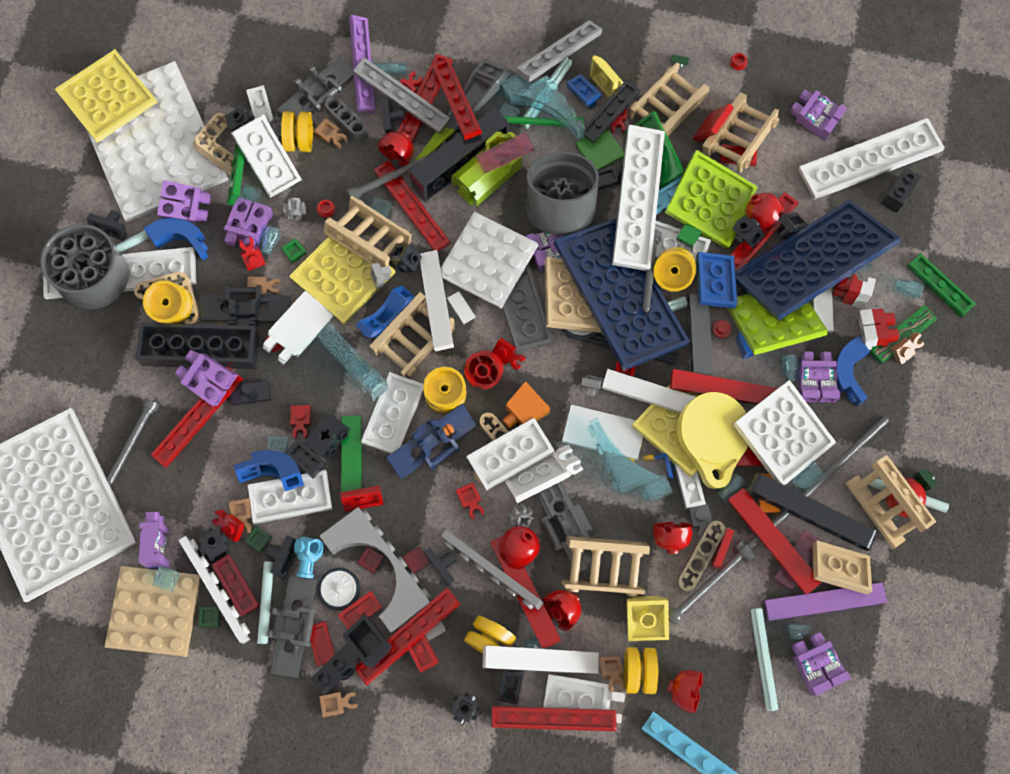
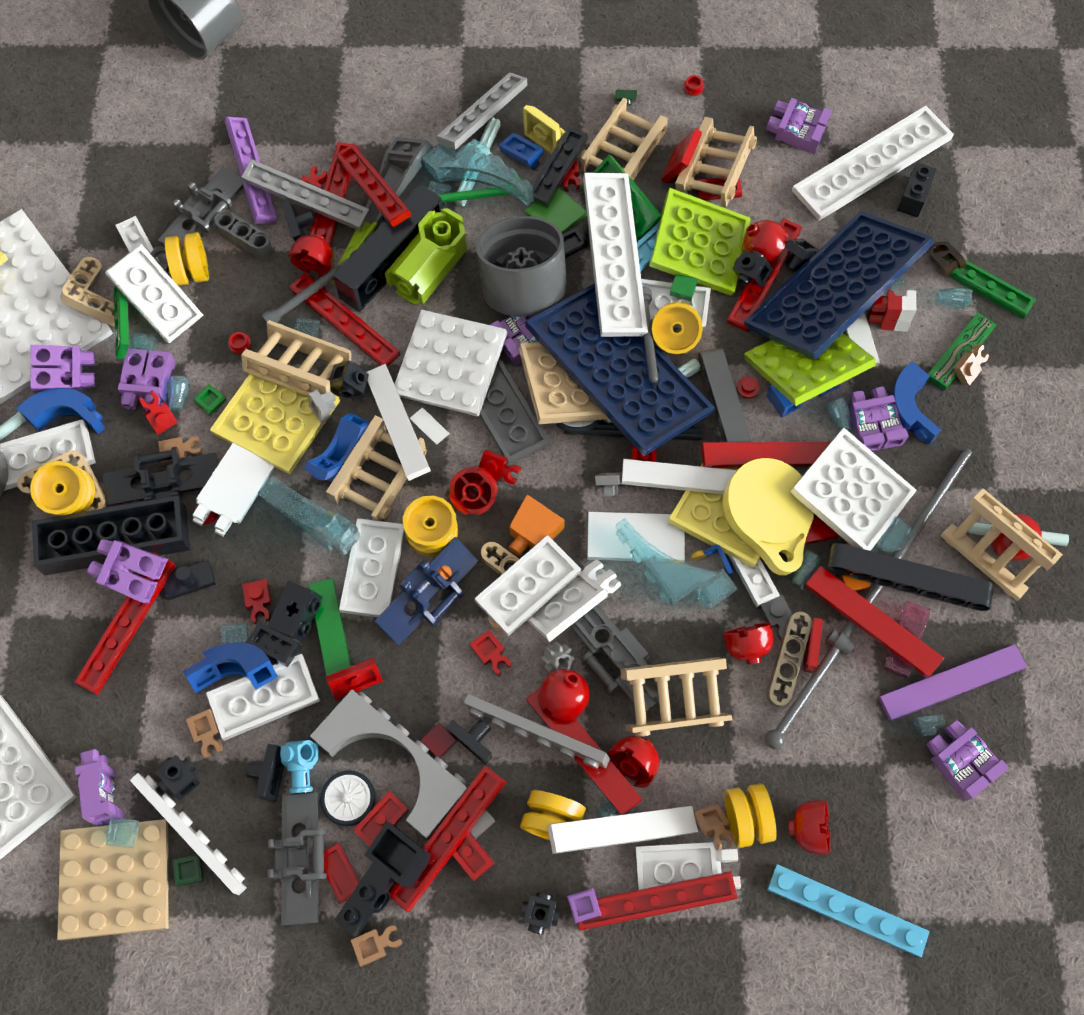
camera: 10 degrees left, 5 degrees down
(148, 408) = (61, 625): dark grey piece -> none
(229, 525) = (194, 748): red plate -> none
(235, 585) = (214, 822): dark red plate -> none
(238, 118) = (110, 256): black brick -> none
(258, 539) = (232, 758): dark green tile -> none
(265, 603) = (257, 837): light aqua piece -> none
(294, 209) = (200, 350): light grey gear -> none
(329, 132) = (227, 254): medium nougat plate -> none
(370, 560) = (381, 753): dark red tile -> none
(393, 68) = (290, 167): clear light blue axle -> none
(499, 710) = (584, 905): none -> medium lavender tile
(505, 152) = (444, 232): clear pink plate -> none
(510, 686) = (592, 869): black tile -> none
(647, 618) = (742, 749): light yellow slope -> none
(716, 280) = (729, 331): blue plate -> none
(764, 659) = (897, 769): light aqua axle -> none
(842, 567) = (963, 635): tan plate -> none
(874, 328) = (927, 347): hips -> none
(909, 248) = (943, 252): none -> dark brown plate
(926, 479) = (1034, 510): dark green plate -> none

